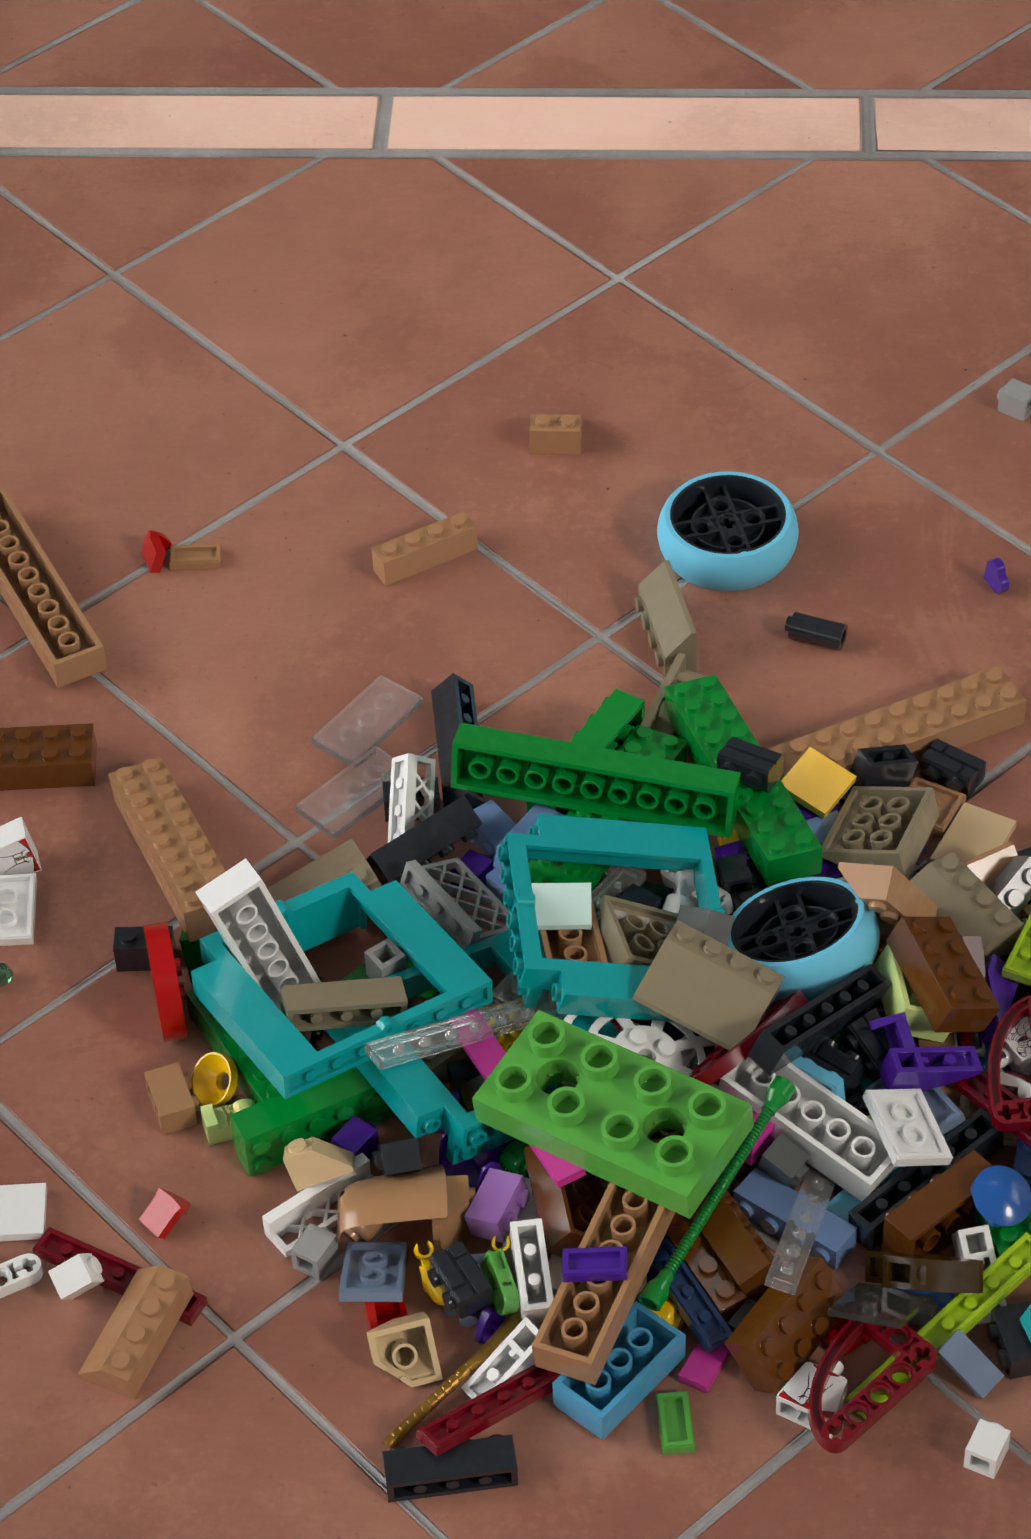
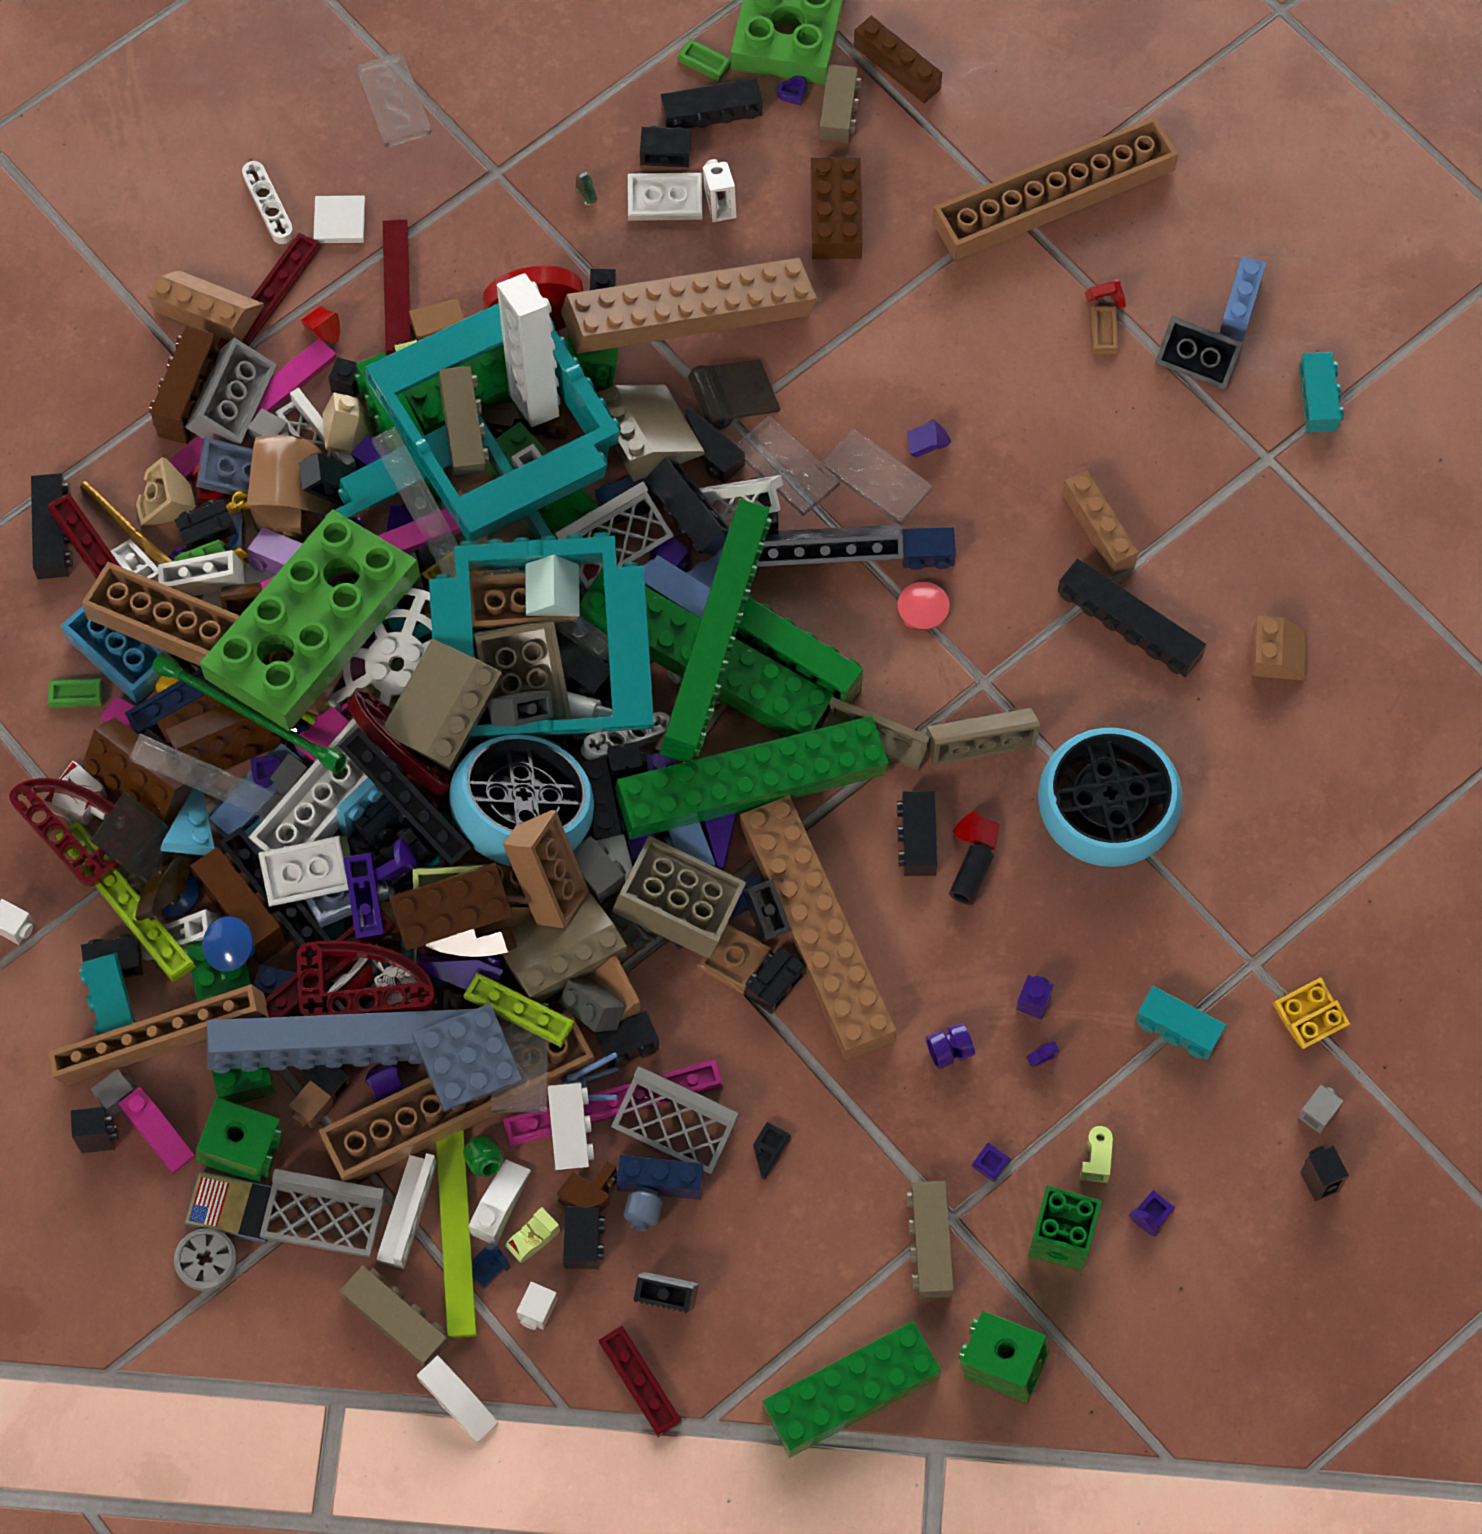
camera: 90 degrees right, 20 degrees up
(76, 1275) = (258, 259): white brick -> none
(113, 1148) = (396, 283): none -> dark red tile
(168, 454) = (1242, 298): none -> medium blue brick
(228, 483) = (1199, 352): none -> black slope
(244, 1178) = (342, 377): none -> black brick
(257, 1331) = (183, 383): none -> reddish brown brick
(267, 1289) = (231, 394): none -> light grey slope
(269, 836) = (732, 391): none -> clear smoke door
(275, 404) = (1320, 392): none -> teal brick
(280, 1277) = (286, 380): none -> dark pink tile
(327, 678) = (927, 438): none -> dark purple tile
(345, 828) = (721, 455): none -> black slope
(457, 660) = (928, 548): none -> dark blue brick
(519, 679) = (923, 605): none -> coral dish
(527, 527) = (1131, 618): none -> black brick
(595, 1264) = (171, 606): dark purple tile -> none
(758, 765) = (733, 768): black brick -> none
(770, 630) = (977, 829): none -> red tile
(772, 1199) = (263, 769): none -> dark purple tile
(778, 669) = (917, 833): none -> black brick
(817, 782) = (740, 843): yellow tile -> none
(862, 1256) = (191, 828): none -> medium azure wing
(923, 410) = (1311, 1013): none -> yellow slope
(940, 581) = (1035, 996): none -> dark purple brick
(950, 488) = (1179, 1023): none -> teal brick
(969, 1363) = (88, 914): sand blue tile -> none
(974, 833) = (684, 992): tan tile -> none
(1001, 637) = (950, 1045): none -> dark purple wheel

